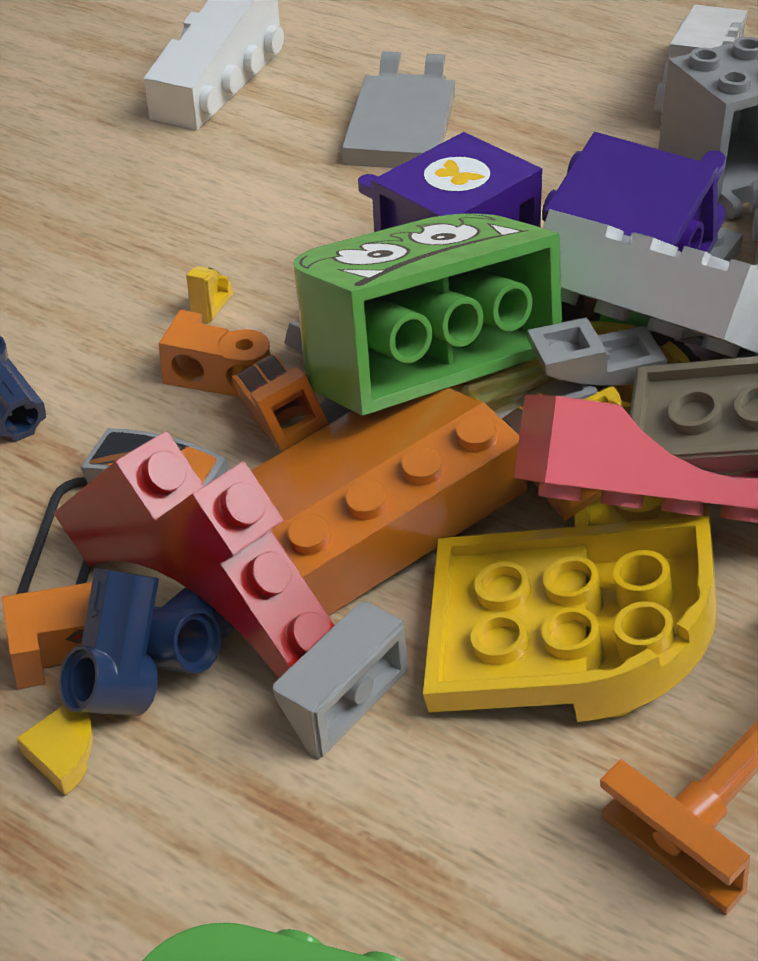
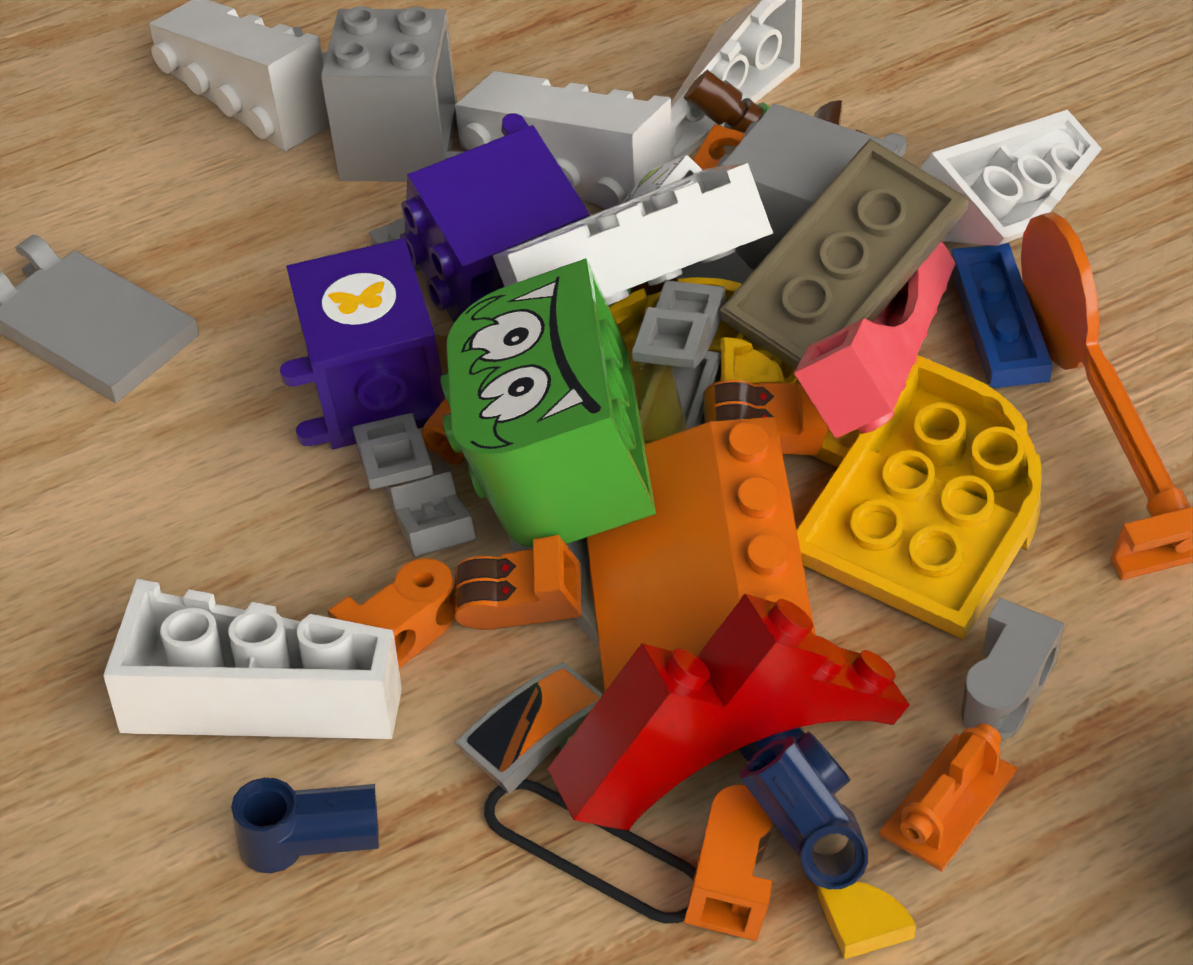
camera: 60 degrees left, 5 degrees up
(105, 298) = (248, 671): none -> white wedge
(207, 291) = (280, 587): yellow tile -> none
(220, 762) = (951, 797): none -> orange hinge
(342, 676) = (919, 666): light grey slope -> none
(392, 751) = (1021, 655): none -> light grey leg

